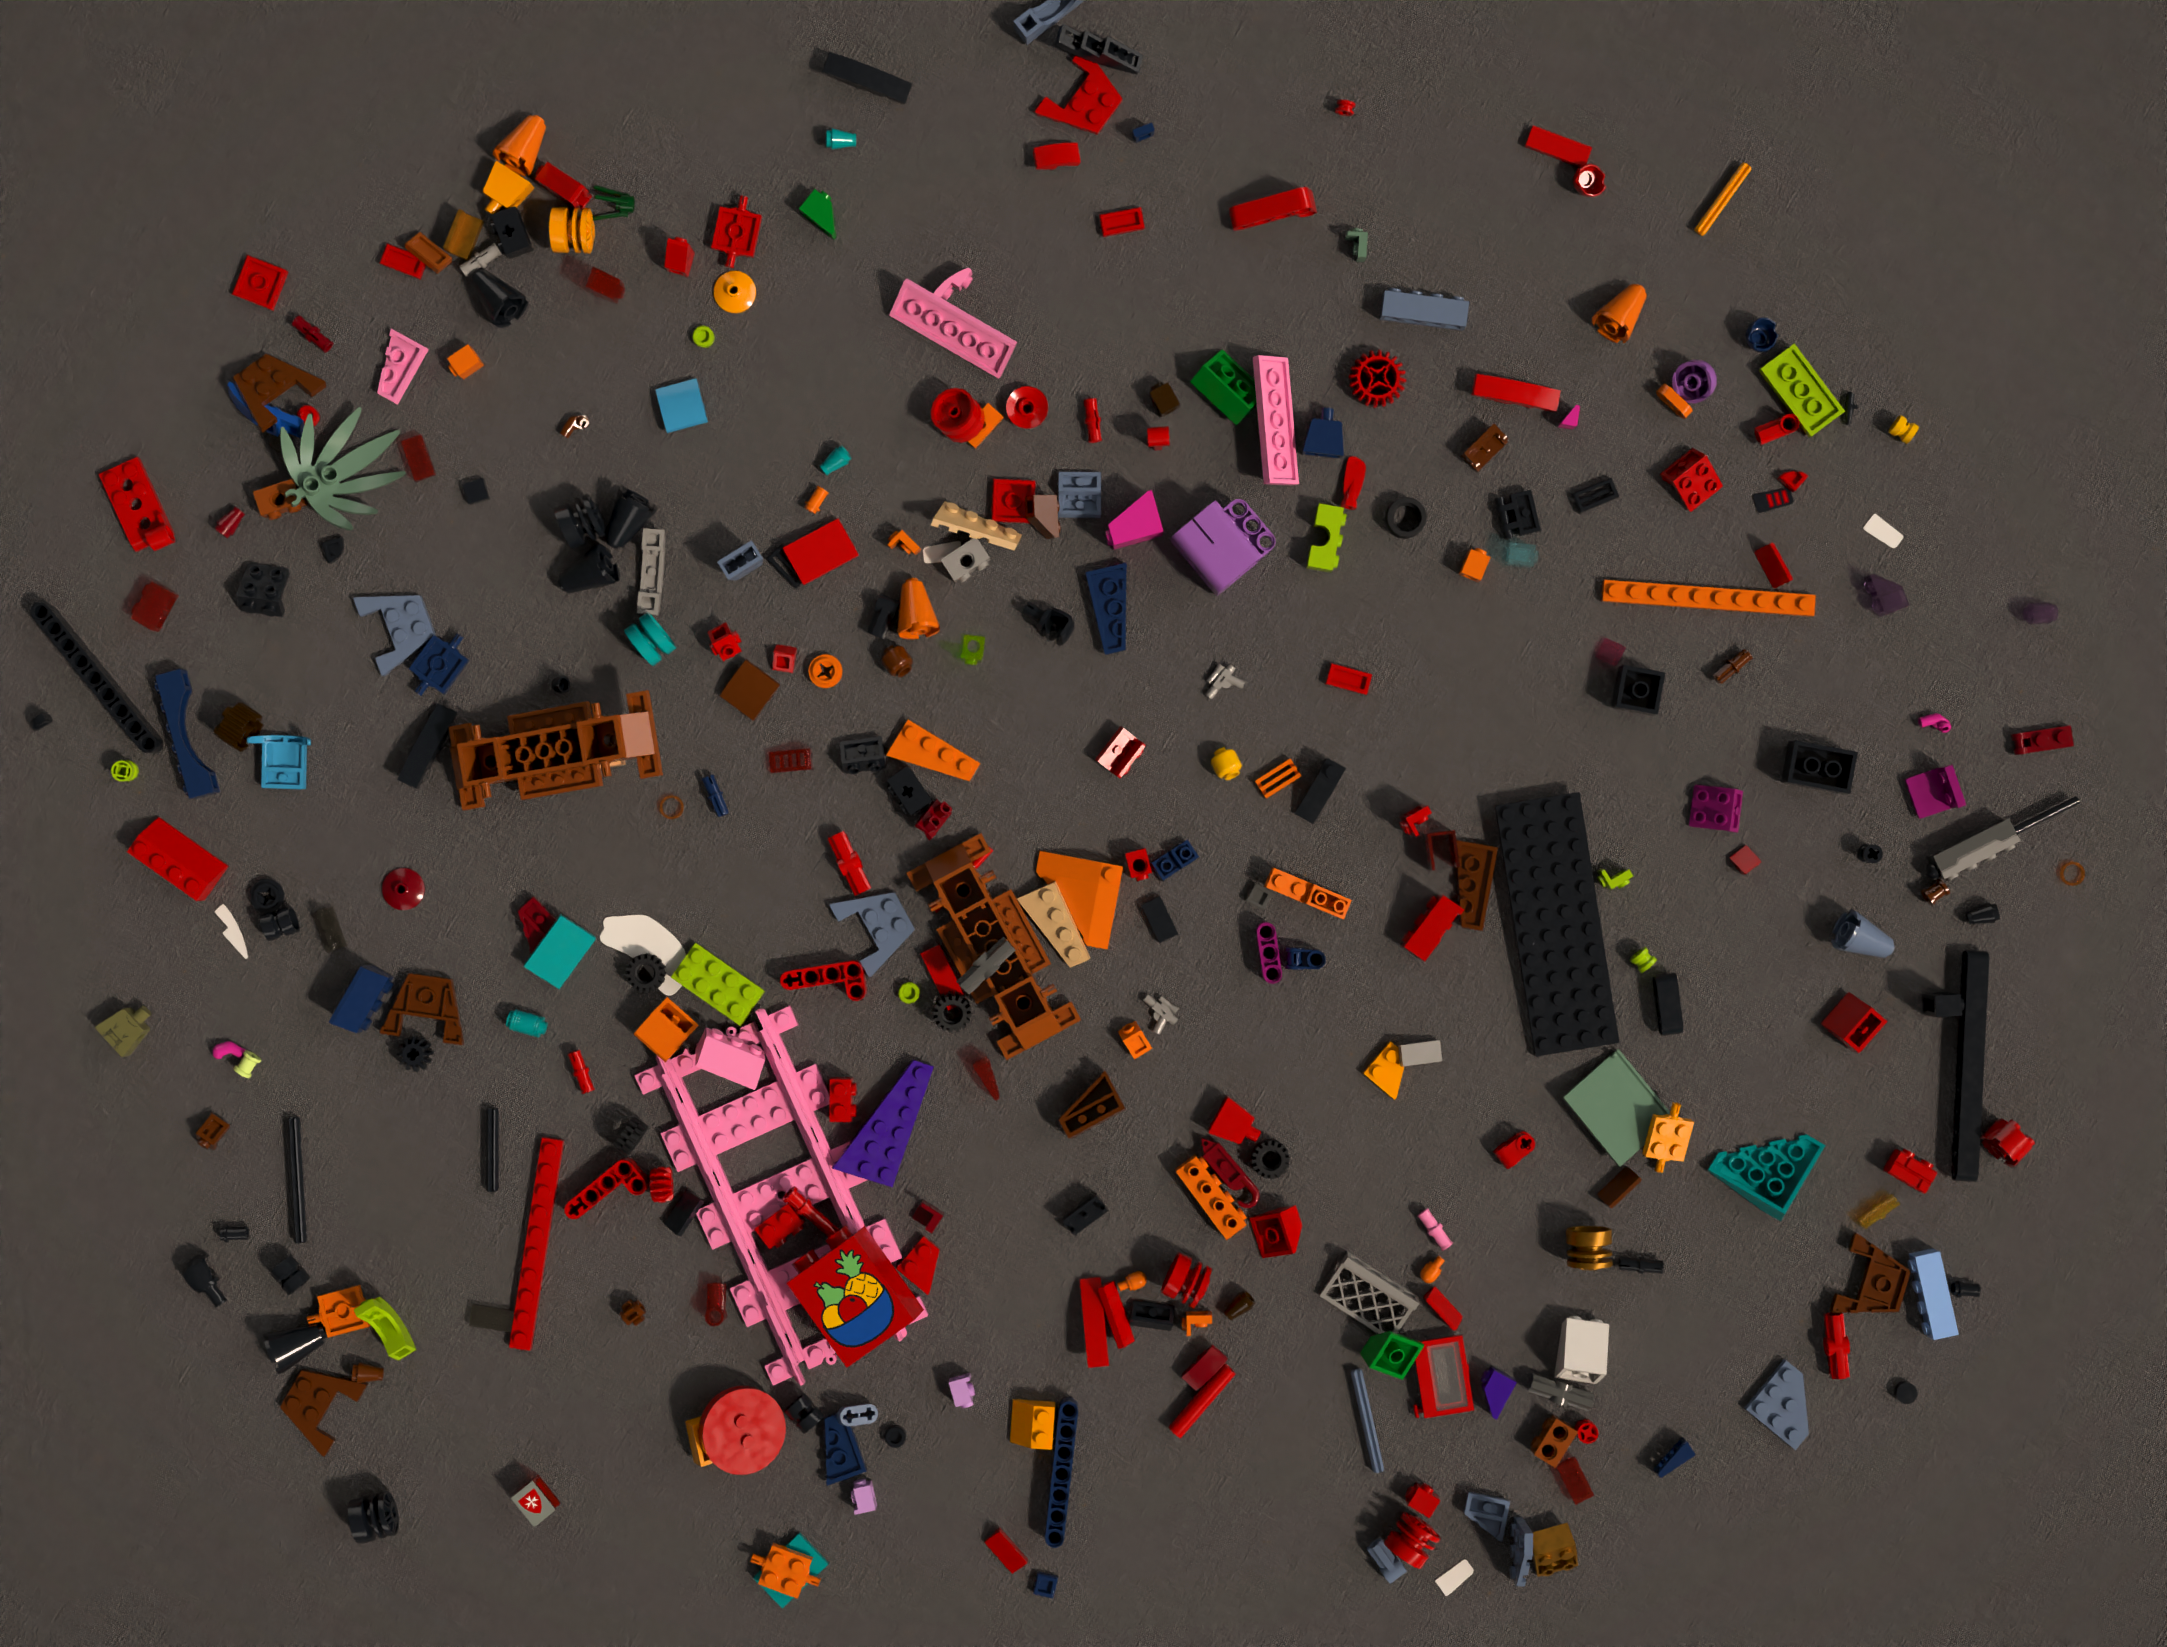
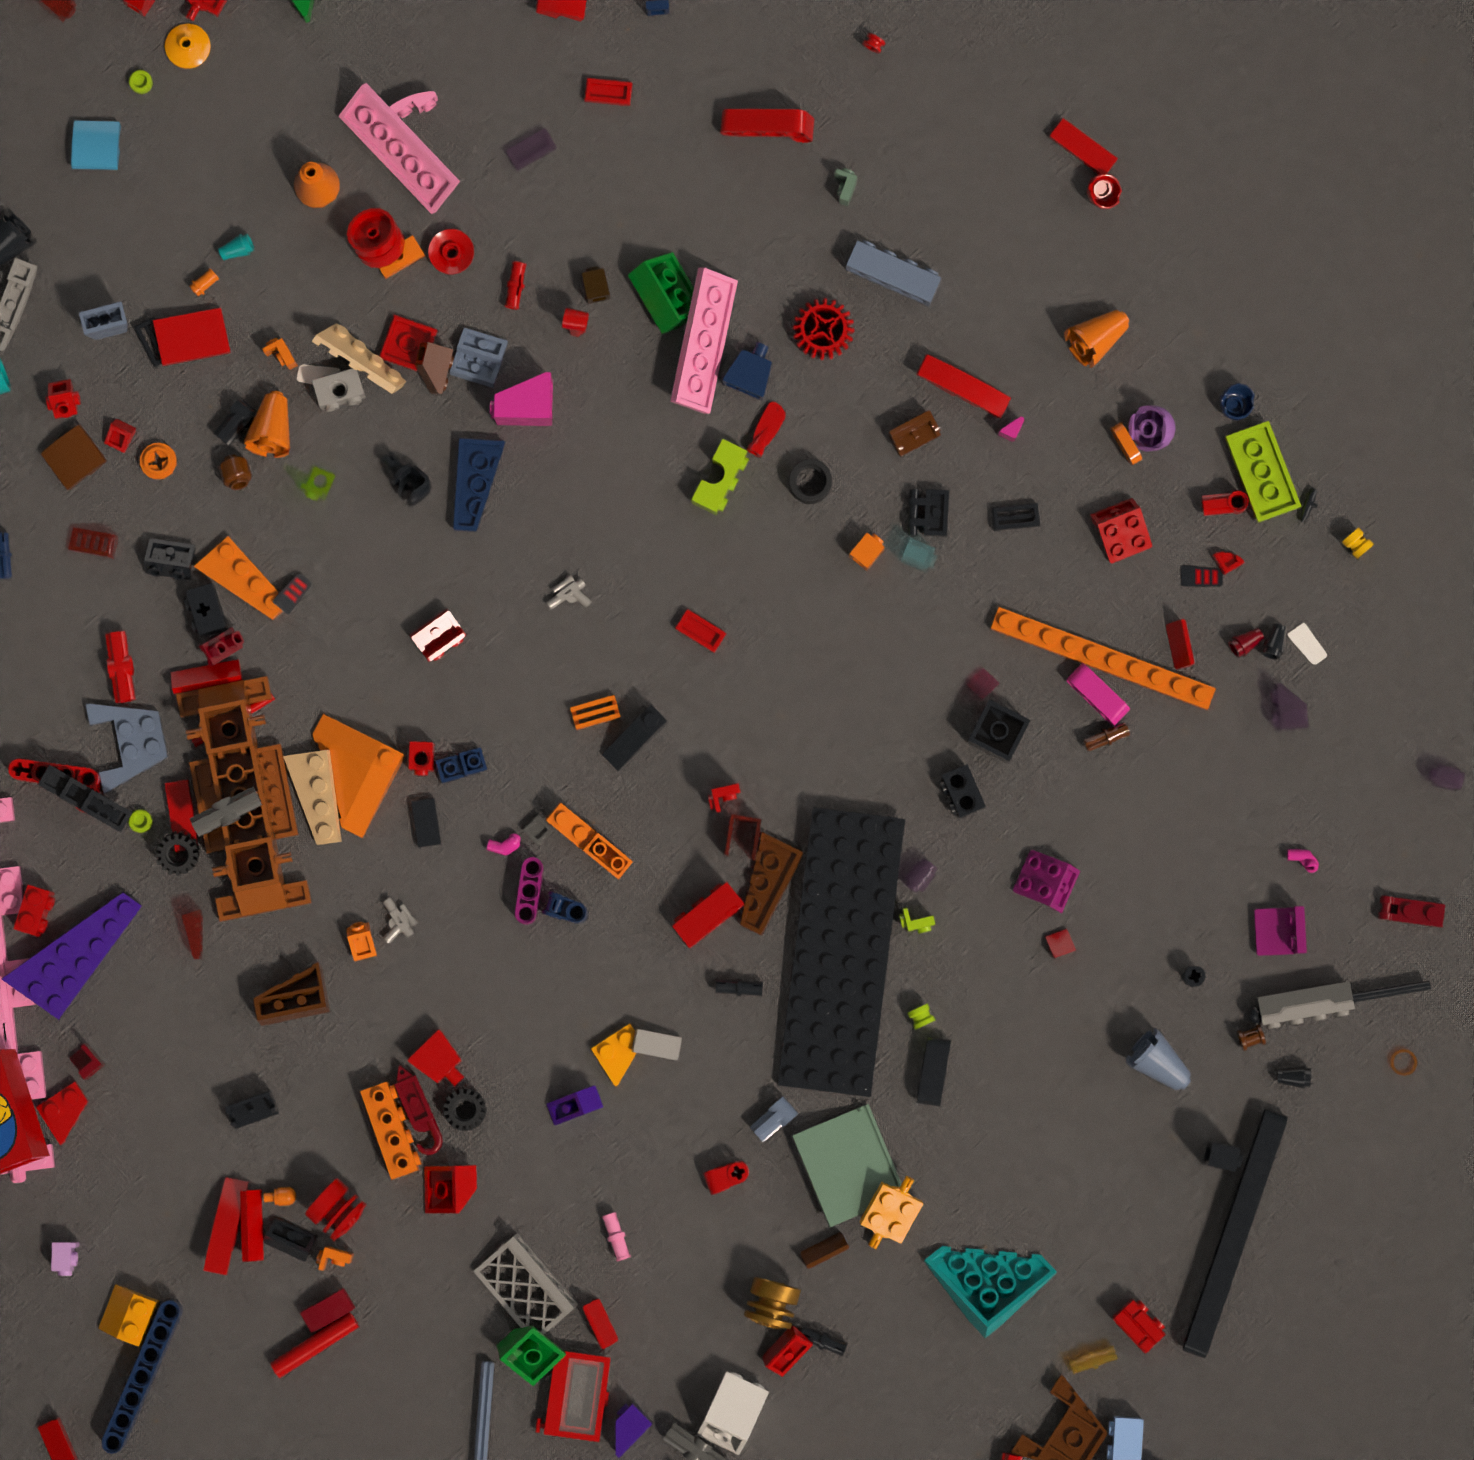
camera: 20 degrees right, 5 degrees down
(856, 989) = (84, 798): none -> black slope
(888, 382) = (316, 184): none -> orange cone
(927, 849) = (206, 676): none -> red tile
(980, 753) = (292, 593): none -> black sticker
(1069, 294) = (531, 149): none -> clear purple tile
(1221, 545) = (616, 458): medium lavender piece -> none
(1226, 763) = (545, 680): yellow head -> none
(1236, 920) = (505, 847): none -> dark pink arm
(1239, 1305) = (385, 1255): dark brown cone -> none
(1365, 1127) = (574, 1105): none -> dark purple slope
(1432, 1270) = (600, 1279): orange cylinder -> none
(1476, 981) = (739, 987): none -> black pin
(1544, 1083) = (778, 1115): none -> sand blue piece
(1606, 837) = (920, 876): none -> clear purple brick
(1612, 1284) = (786, 1351): none -> red slope
(1625, 748) = (968, 790): none -> black brick
(1714, 631) = (1098, 694): none -> dark pink beam
(1722, 199) = (1238, 251): light orange axle -> none
(1819, 767) = (1165, 868): black brick -> none
(1829, 547) = (1244, 643): none -> dark red cone
(1853, 1022) = (1123, 1148): red slope -> none
(1855, 539) = (1275, 642): none -> black cone
(2007, 1141) = (1249, 1324): red brick -> none

